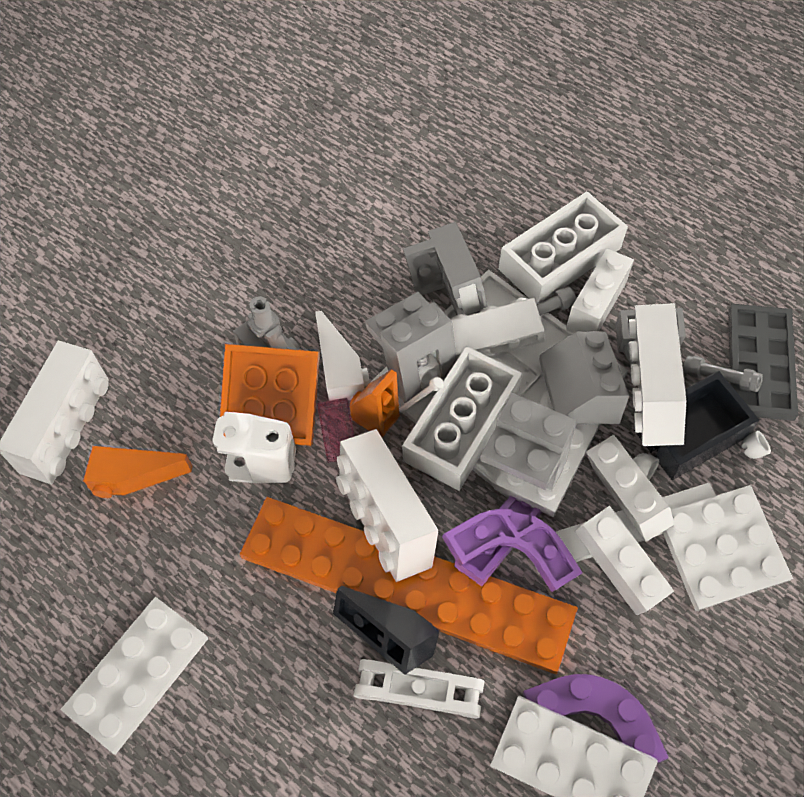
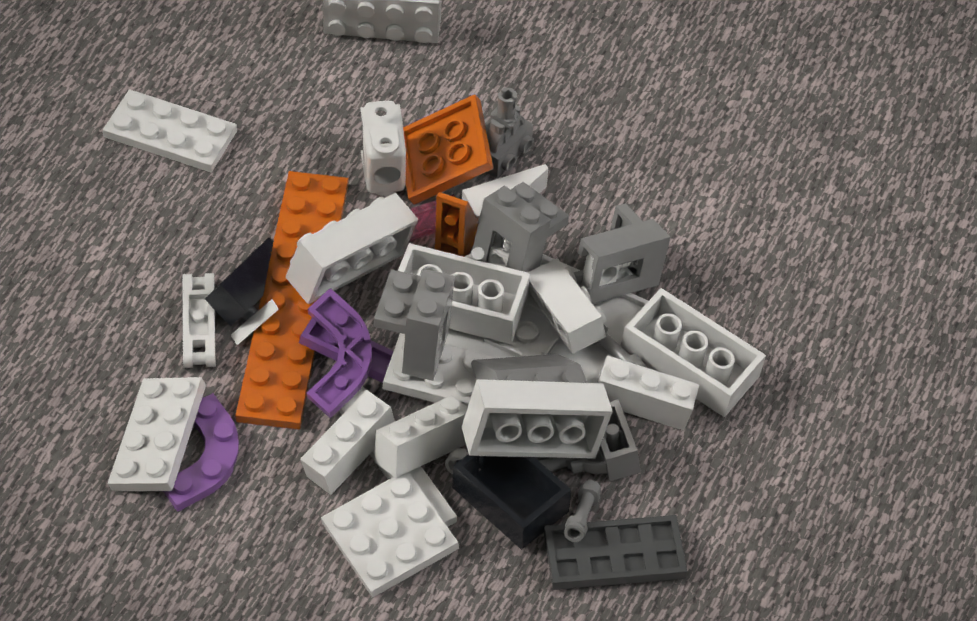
camera: 70 degrees right, 10 degrees down
(128, 470) = (344, 73): orange slope -> none
(436, 615) = (254, 322): none -> white sticker
(756, 445) = (516, 550): white hinge -> none

